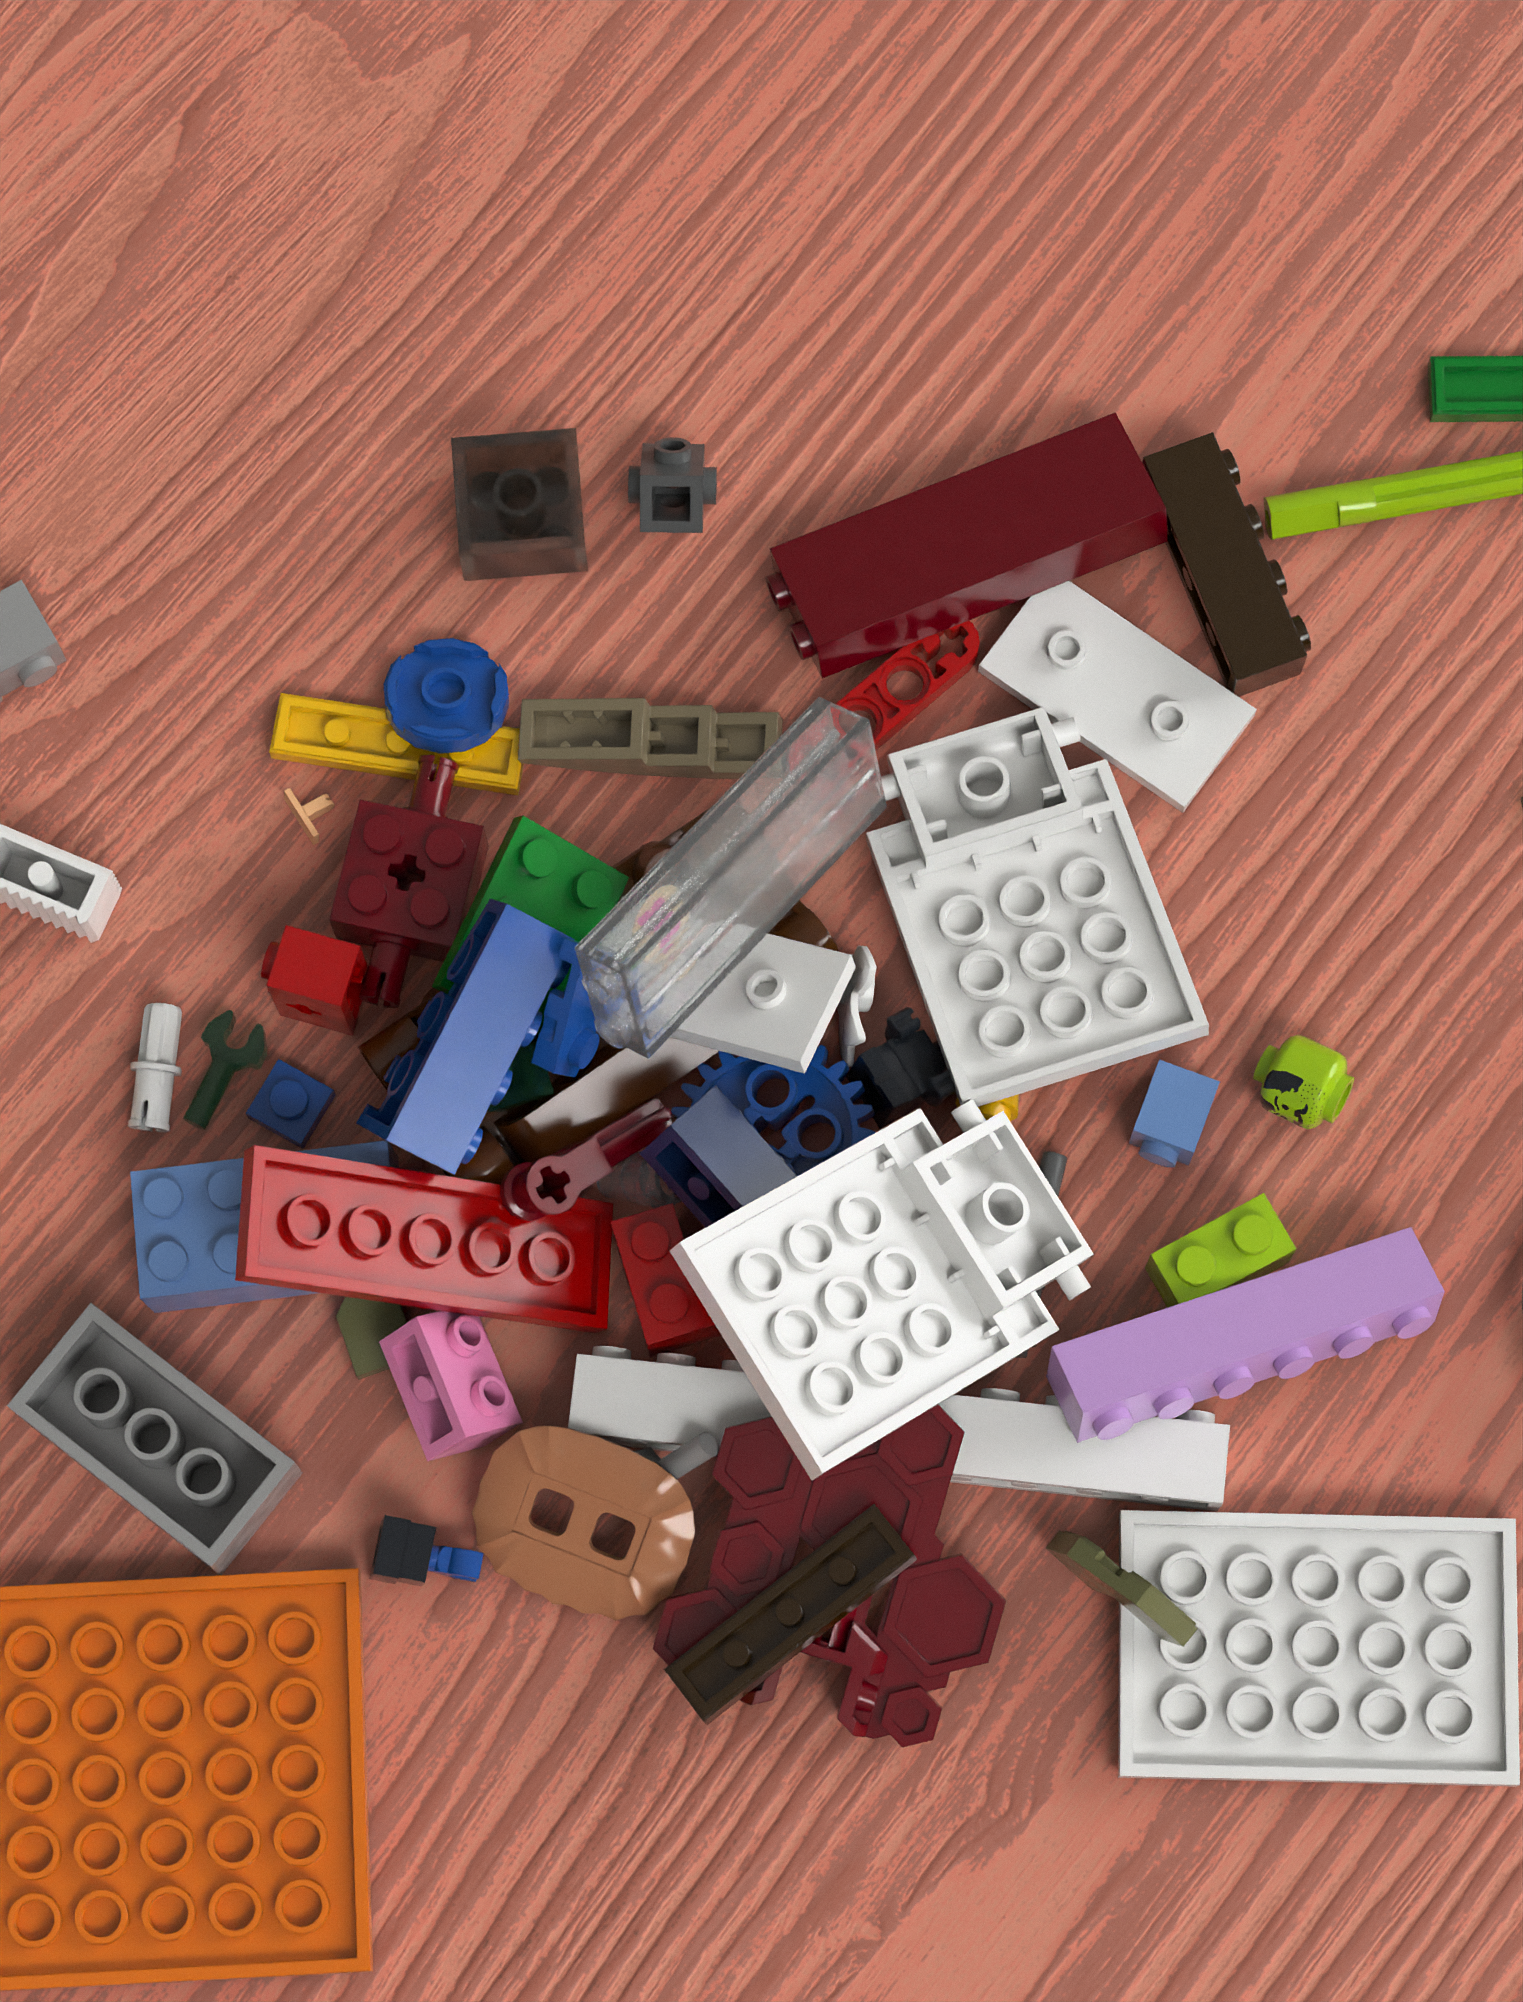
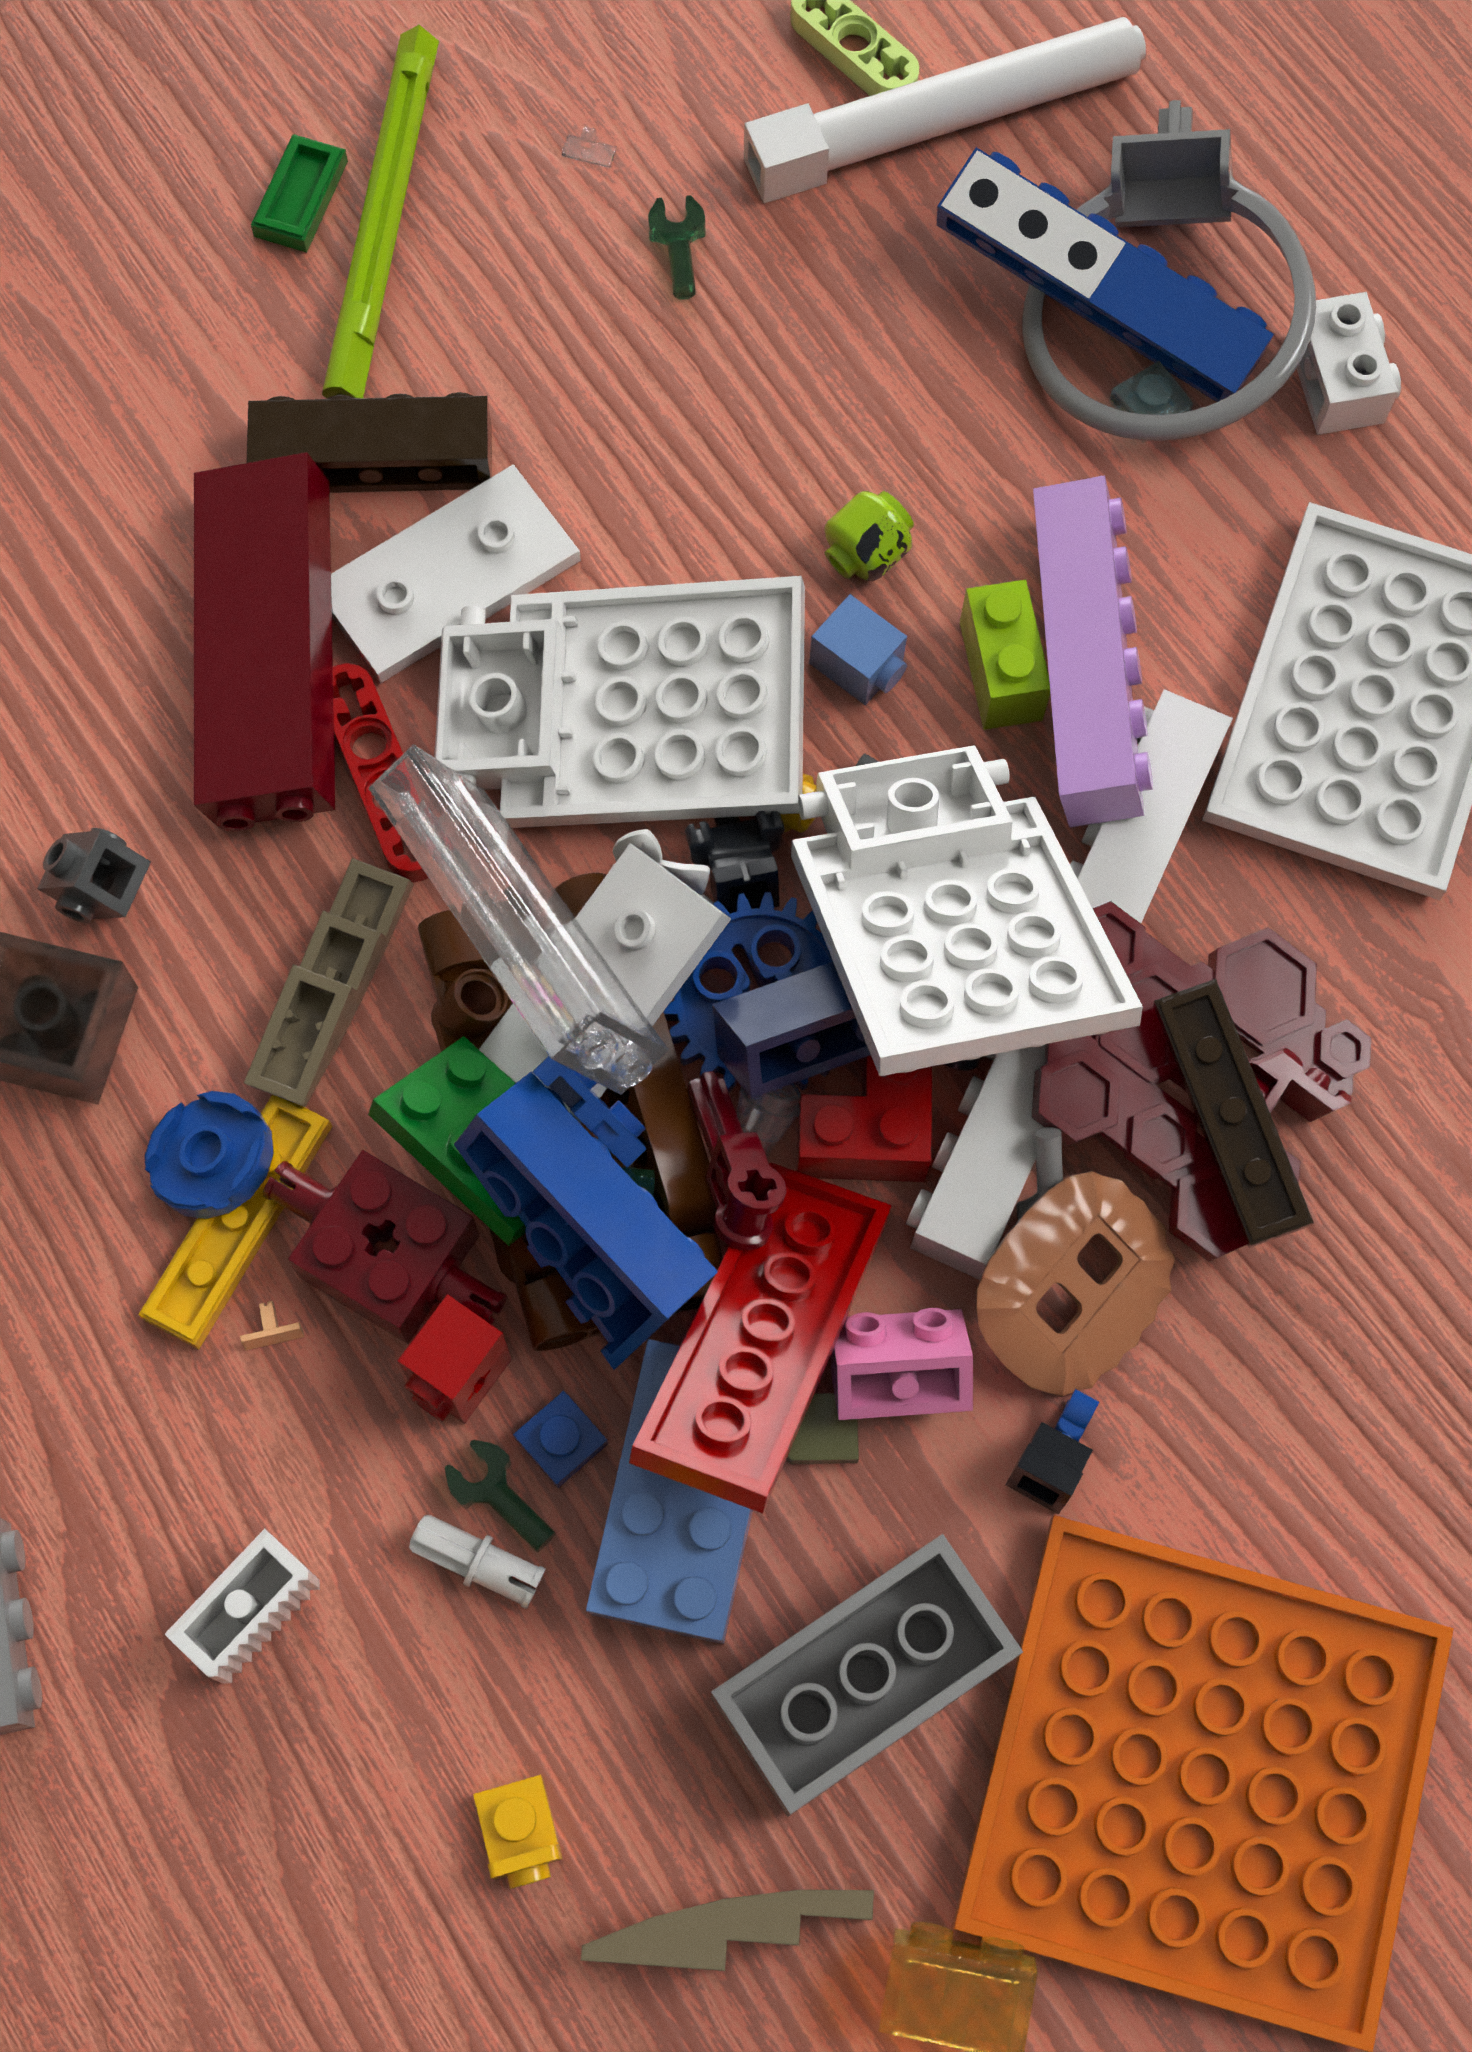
camera: 75 degrees left, 5 degrees down
(1130, 1589) = (1304, 808): olive tile -> none

